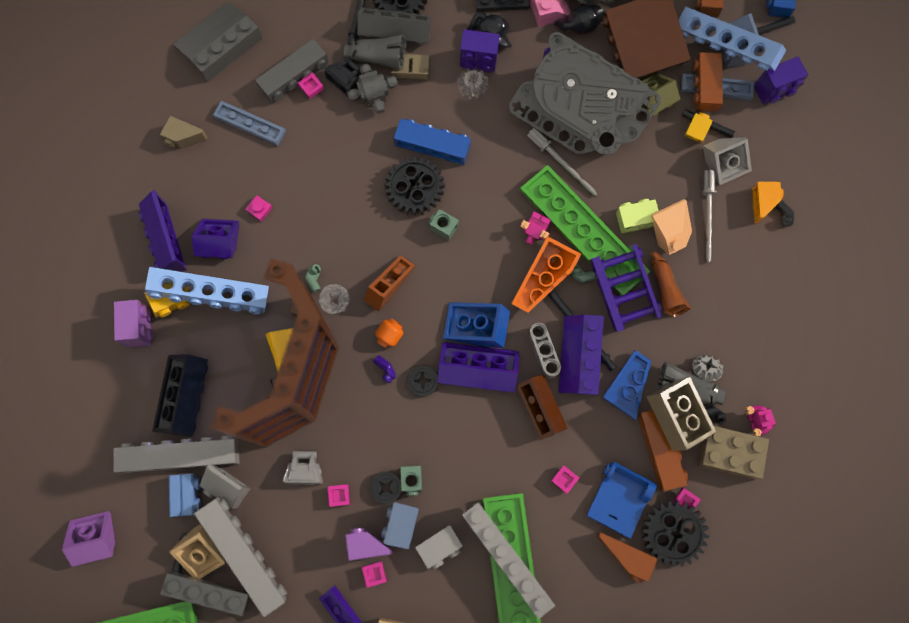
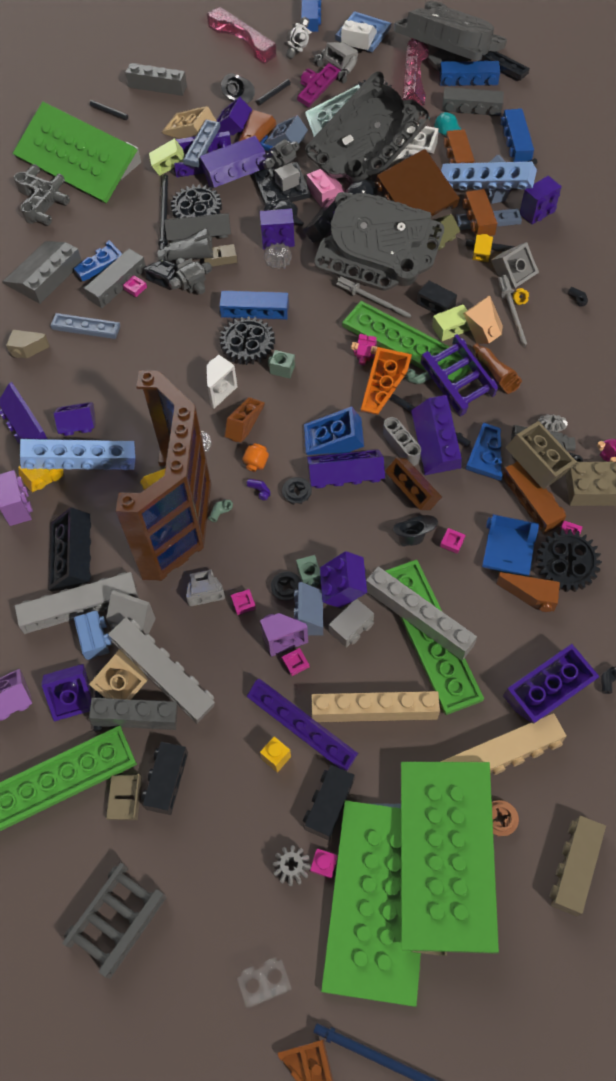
camera: 10 degrees left, 15 degrees down
(148, 550) = (67, 692): none -> dark purple slope
(259, 208) = (109, 388): dark pink plate -> none
(279, 45) = (98, 263): none -> blue wing
(339, 382) = (220, 508): none -> sand green arm
(372, 233) = (220, 380): none -> white slope
(440, 505) = (343, 579): none -> dark purple brick
(530, 458) = (413, 530): none -> black piece
(532, 50) = (321, 223): none -> black brick
(630, 181) = (436, 298): none -> black brick
(722, 204) = (524, 299): none -> yellow plate
(765, 198) = (557, 287): light orange slope -> none

